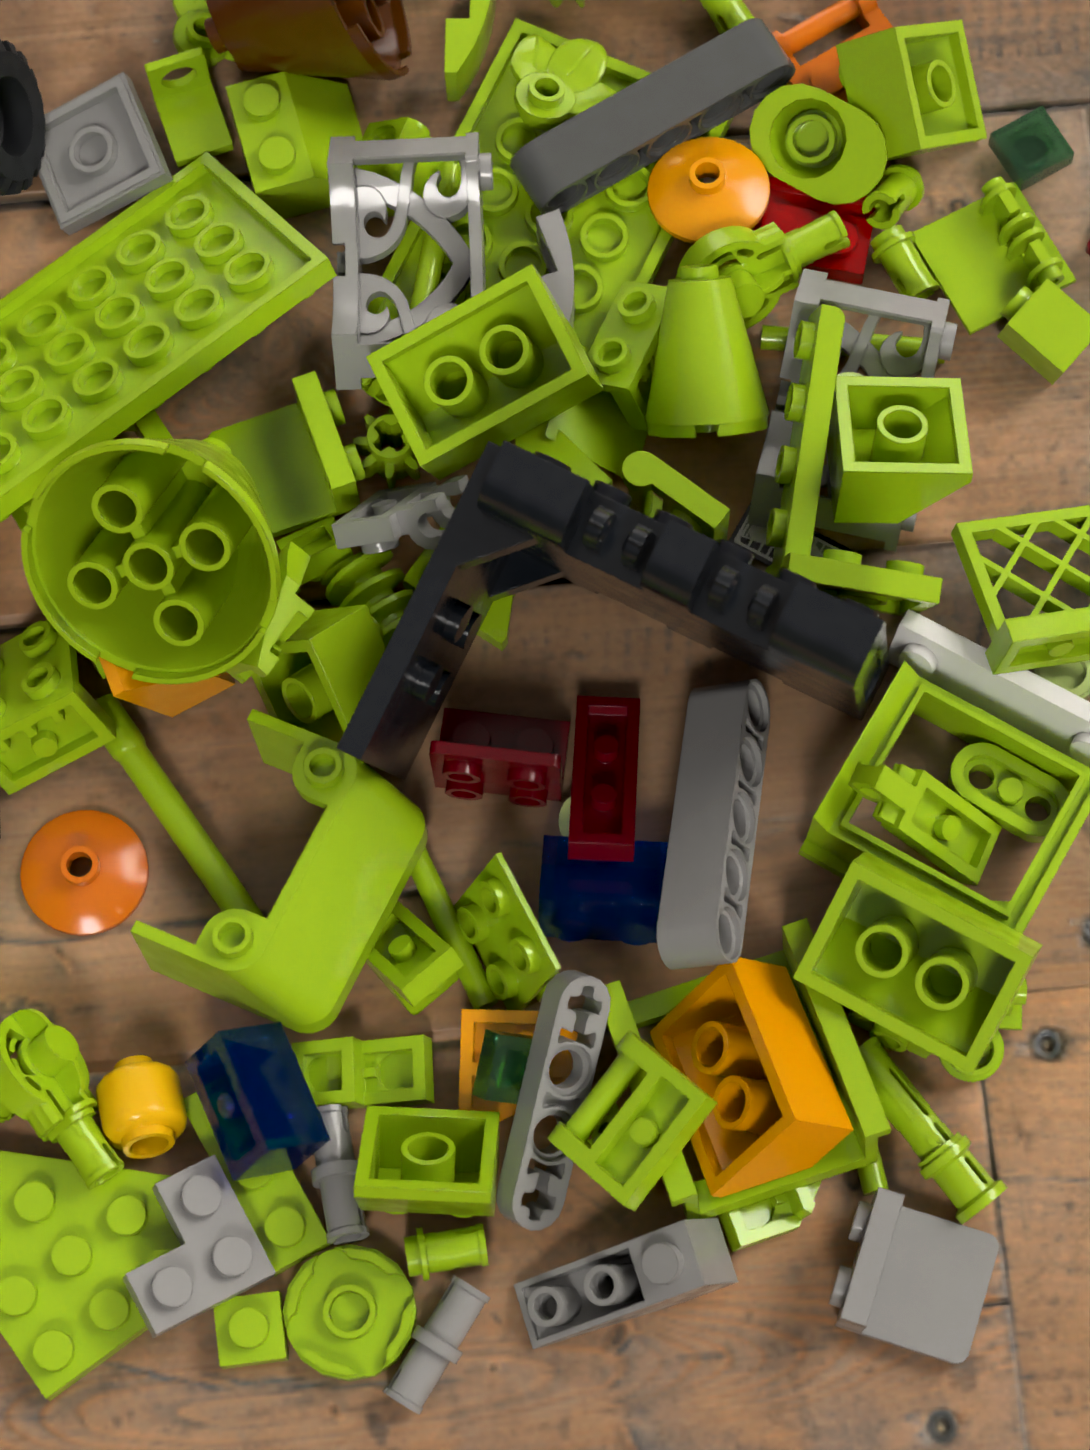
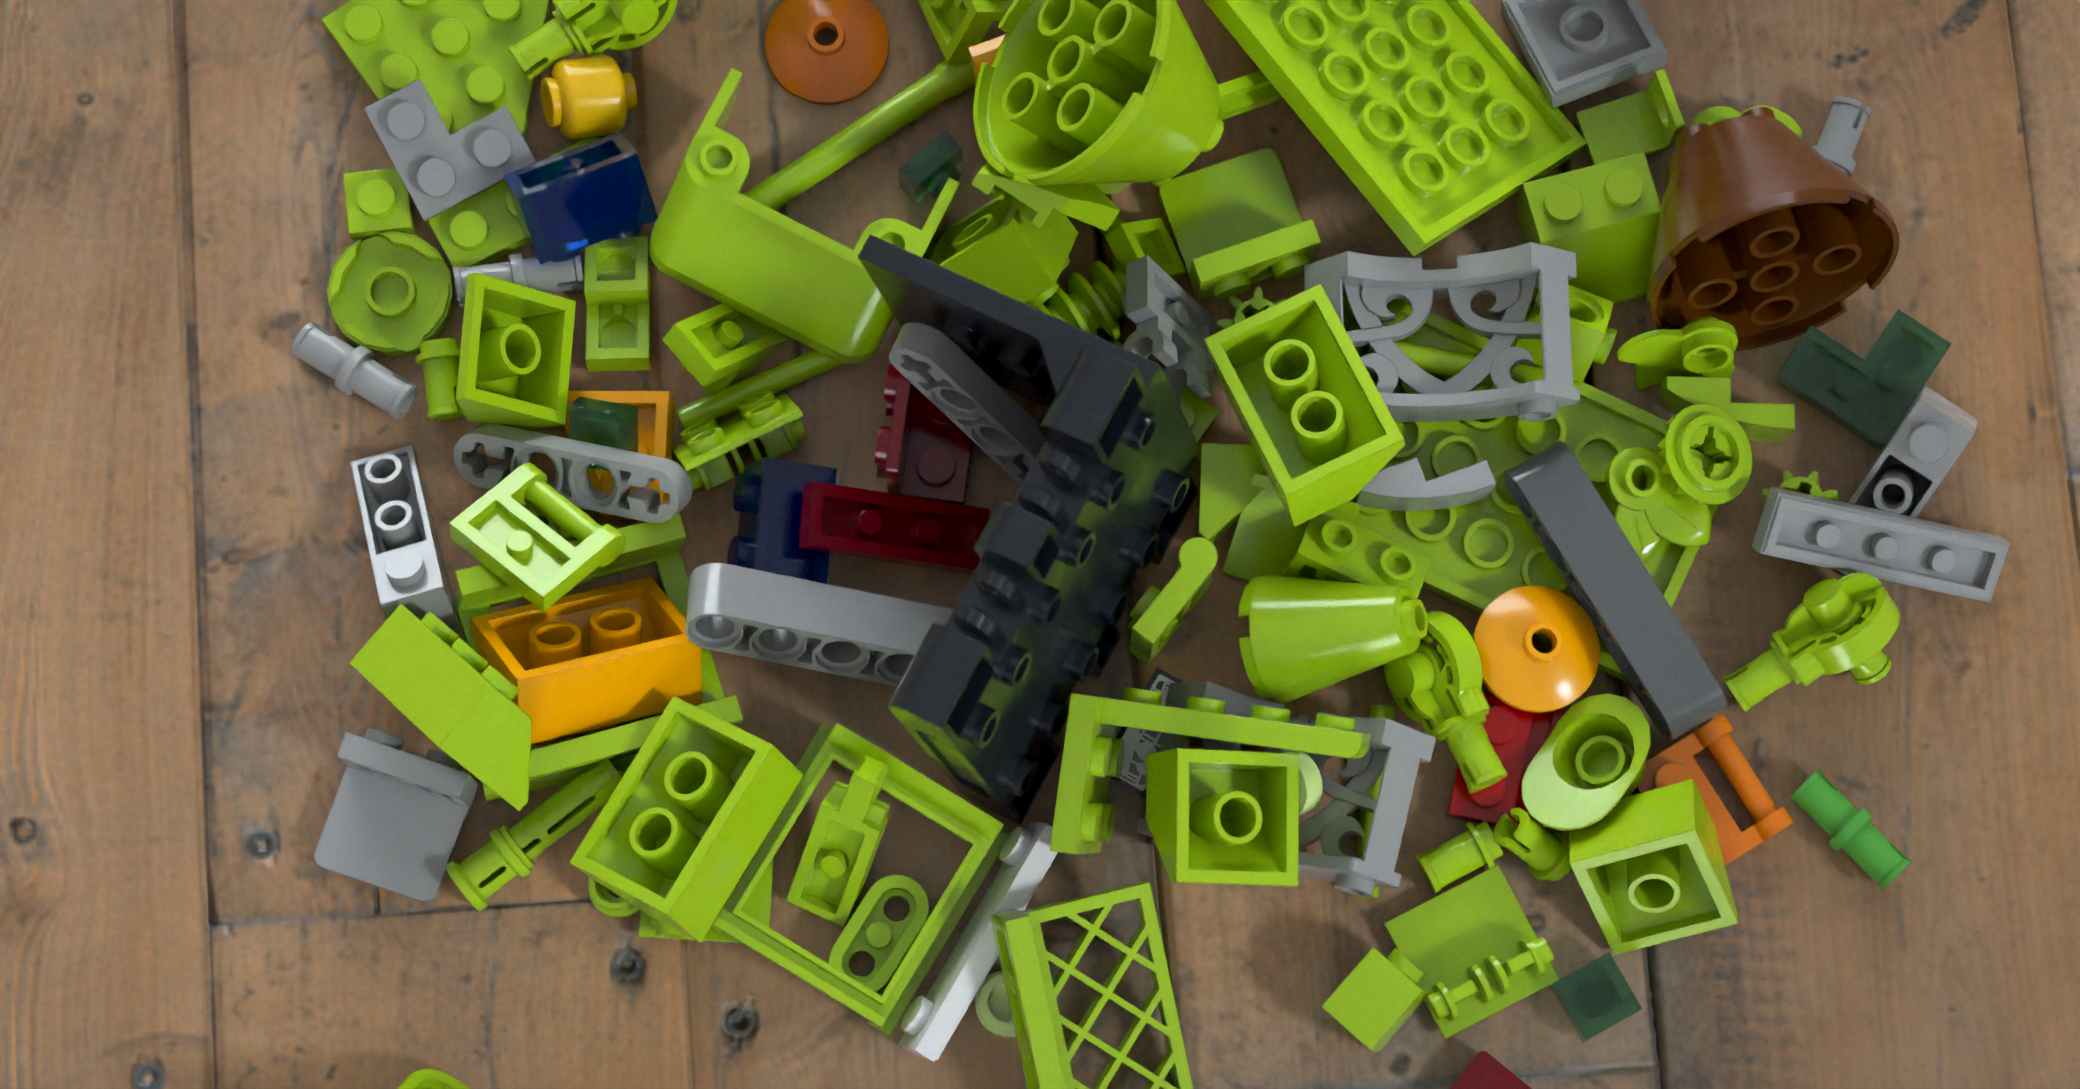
camera: 85 degrees right, 5 degrees up
(225, 755) = (931, 168): none -> clear green plate
(419, 41) = (1697, 350): none -> lime plate
(485, 686) = (968, 397): none -> light grey beam
(502, 27) = (1721, 439): none -> lime gear
(809, 1197) = (451, 700): none -> lime slope

